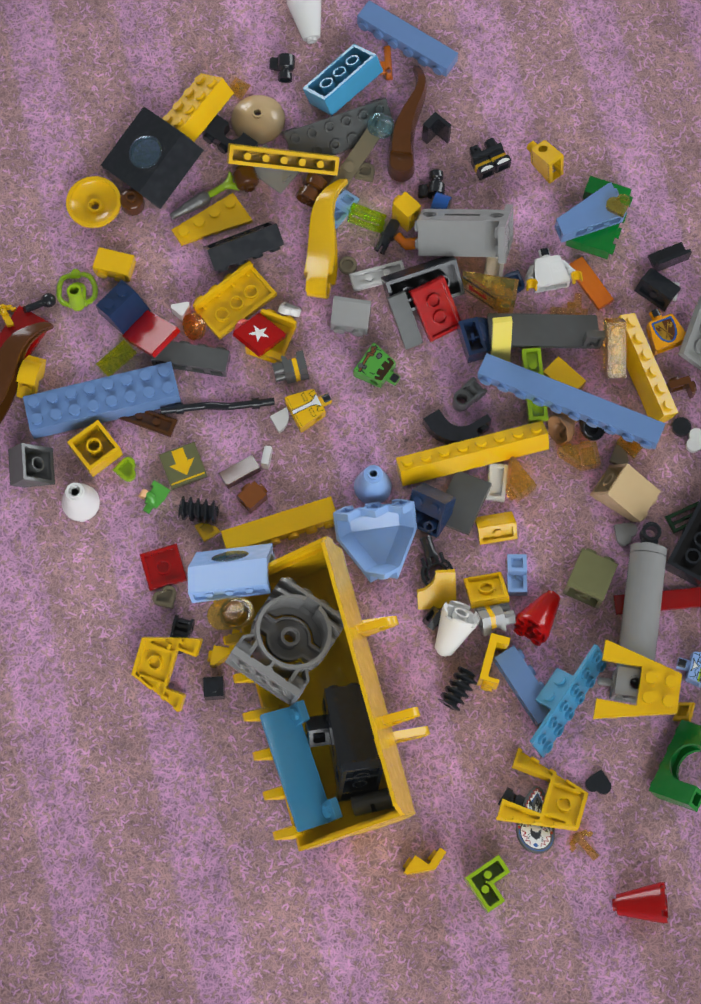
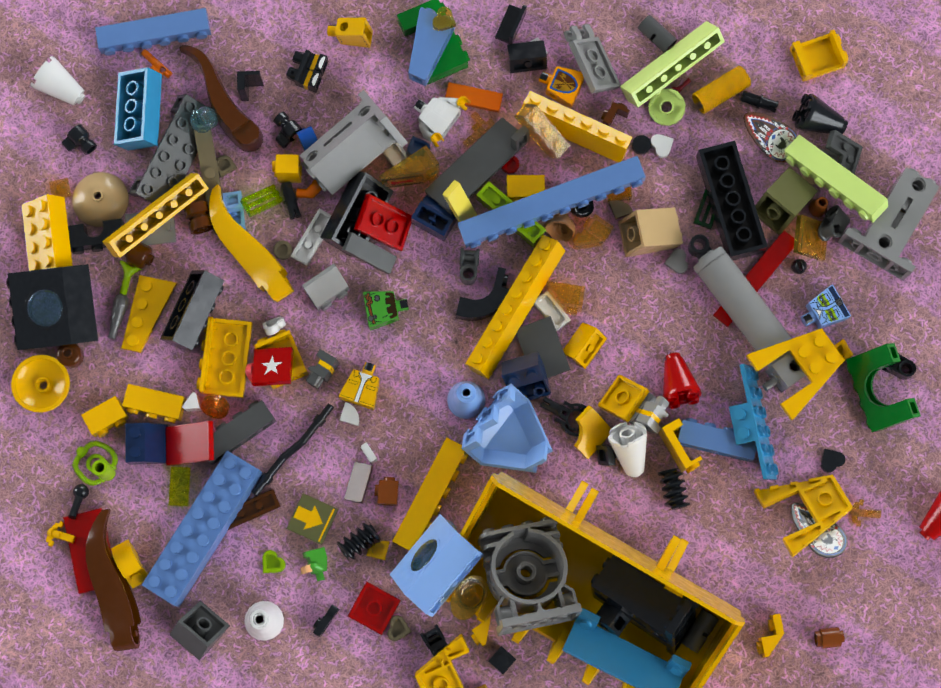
camera: 45 degrees left, 5 degrees up
(95, 448) = (235, 570): yellow brick -> none
(116, 542) = (322, 624): none -> black plate
(154, 285) = (153, 403): none -> yellow brick
(466, 907) = (829, 637): none -> dark orange brick
(482, 883) = (823, 606): lime brick -> none
(509, 795) = (784, 530): black wheel -> none
(517, 574) = (632, 365): light blue slope -> none
(569, 354) = (511, 166): none -> red tile
(590, 578) = (687, 317): olive slope -> none

